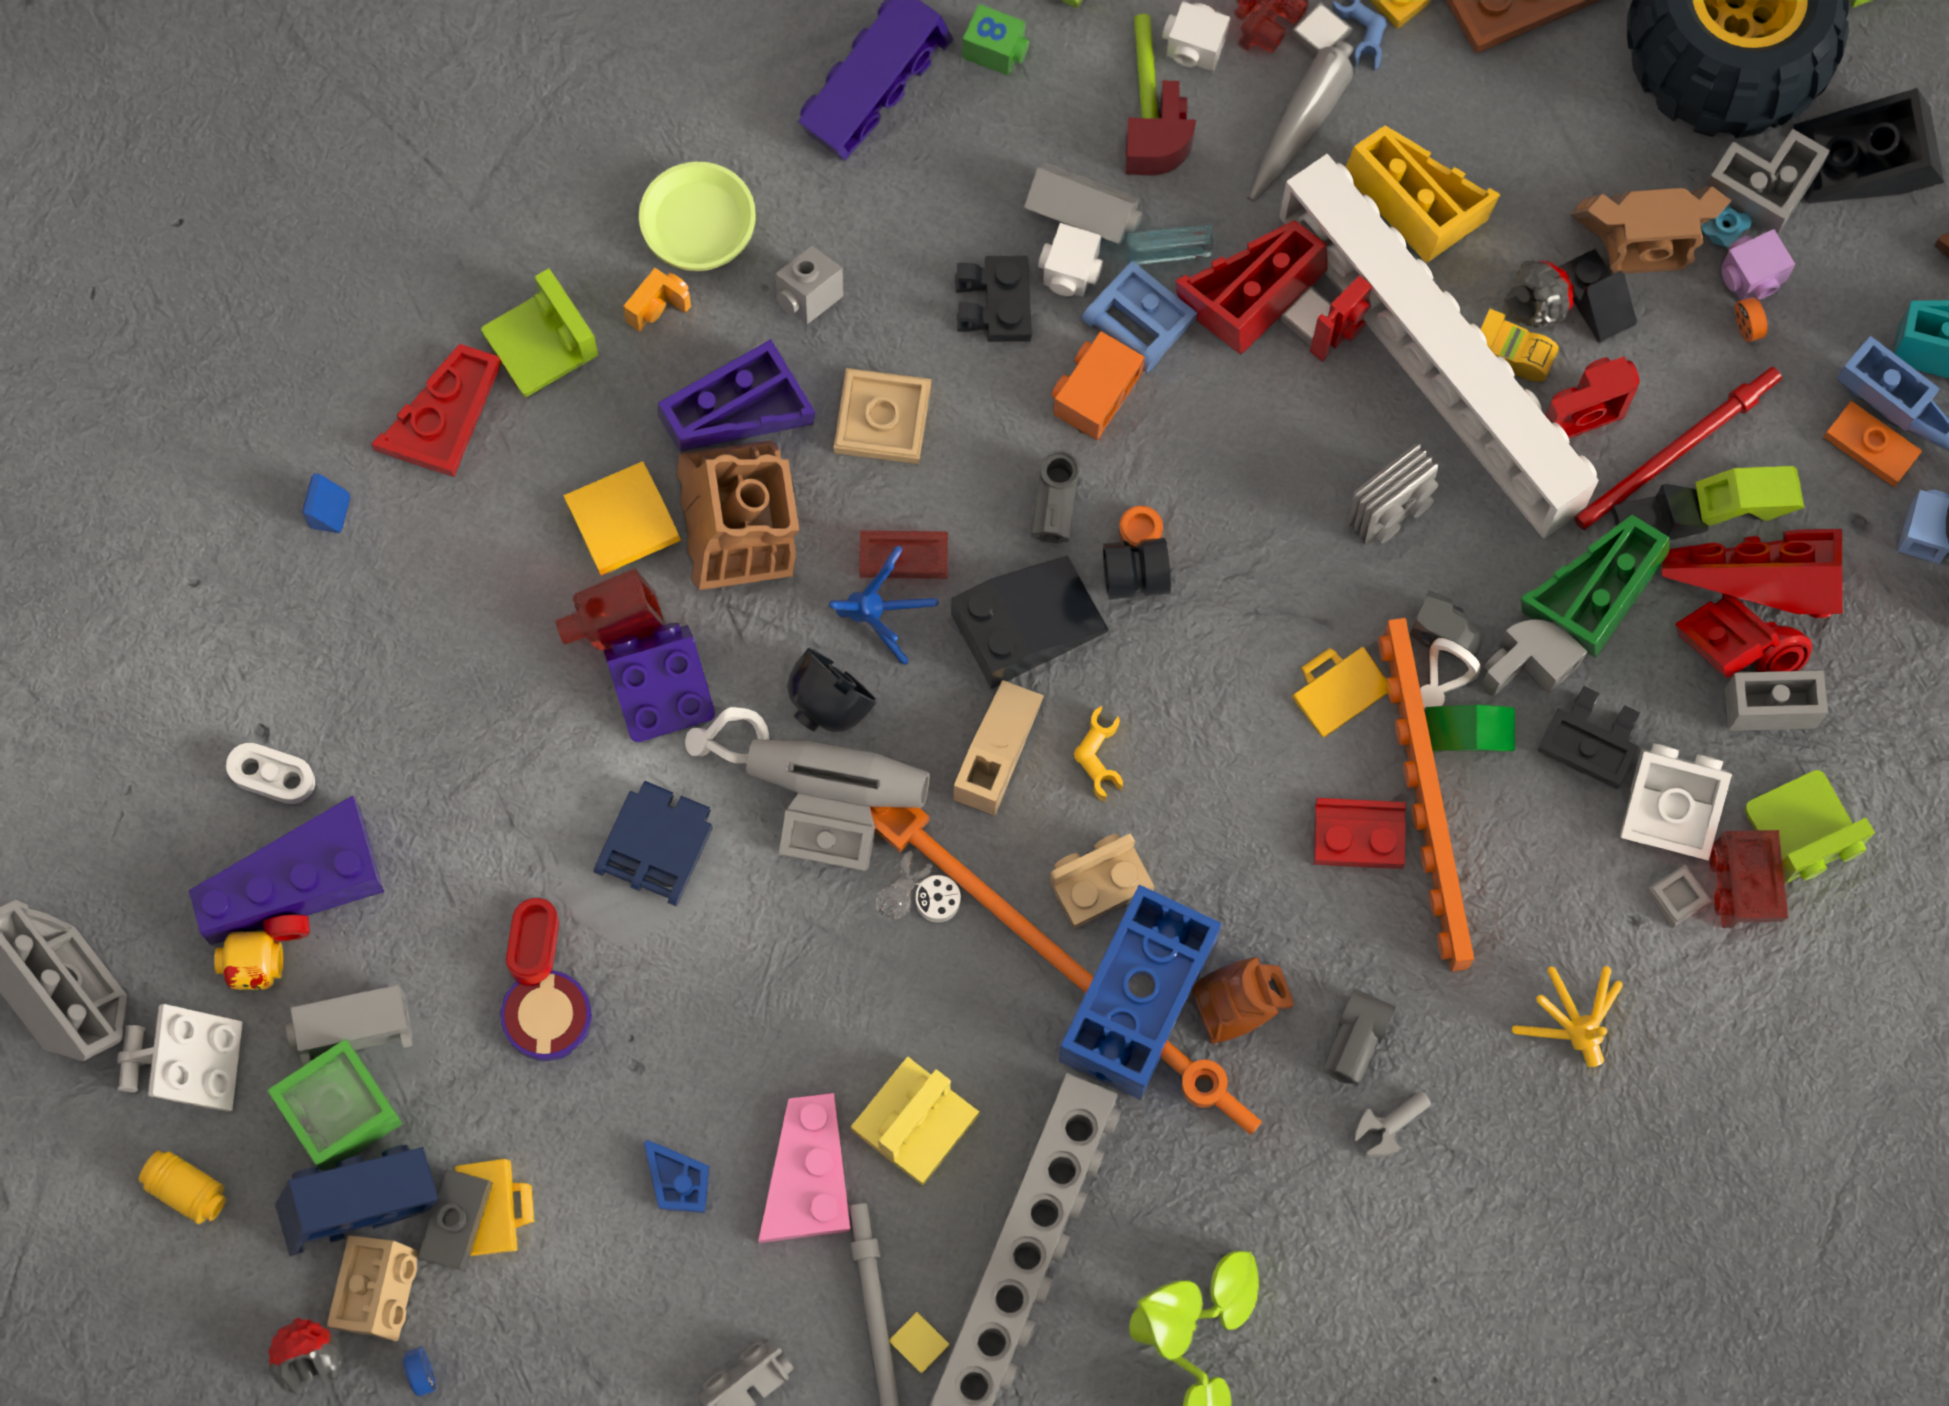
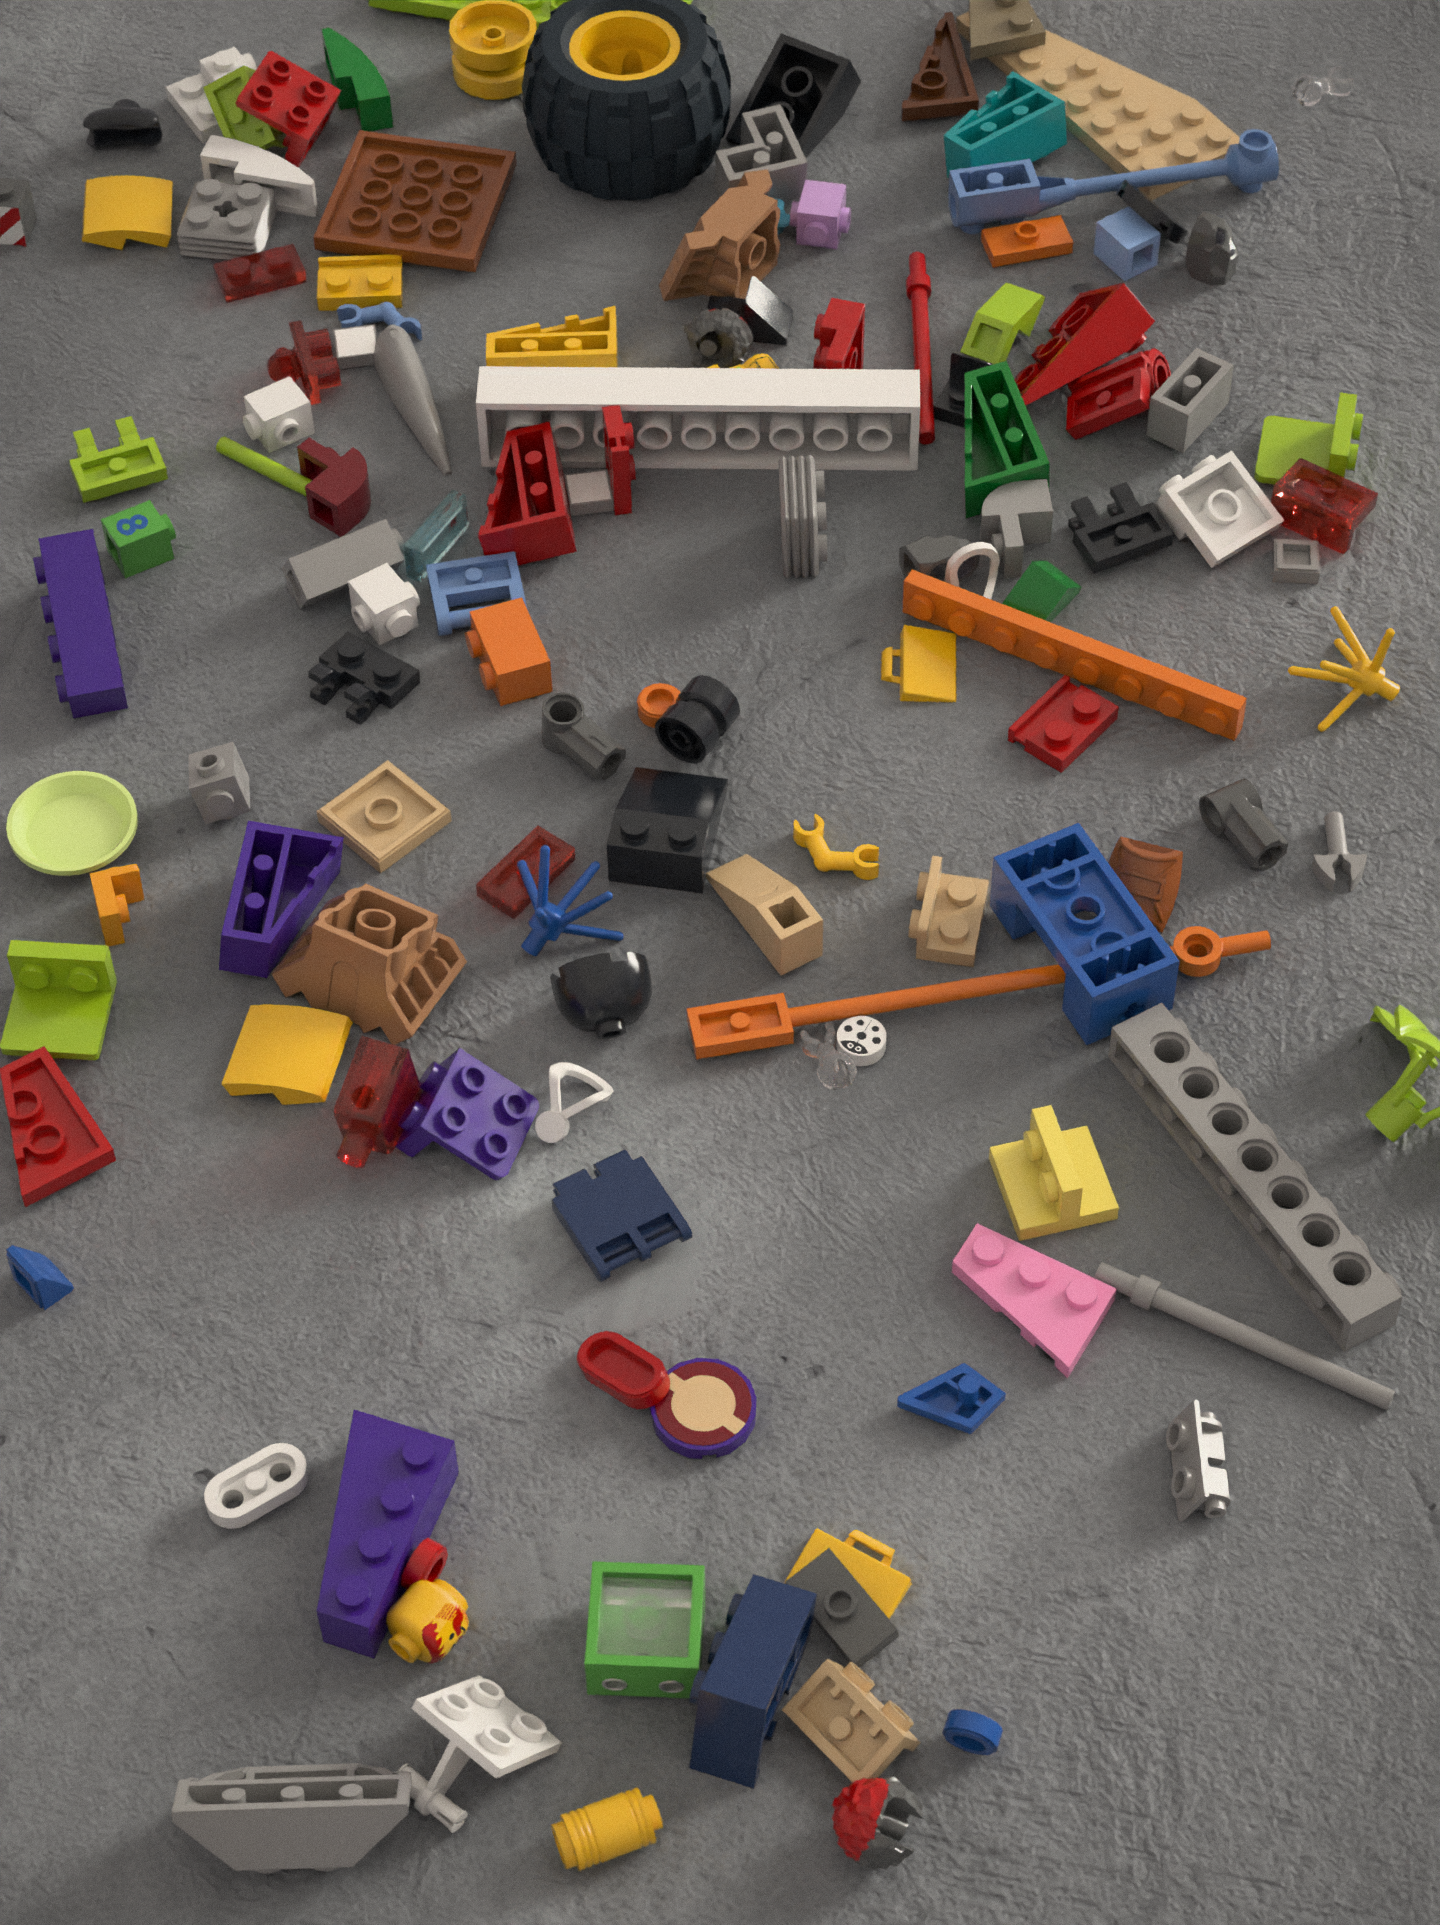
camera: 50 degrees left, 20 degrees down
(361, 1018) = (560, 1579): light grey brick -> none
(835, 791) = (701, 1036): light grey plate -> none
(919, 1342) = (1265, 1307): light yellow piece -> none
(1751, 319) = (860, 243): orange tile -> none

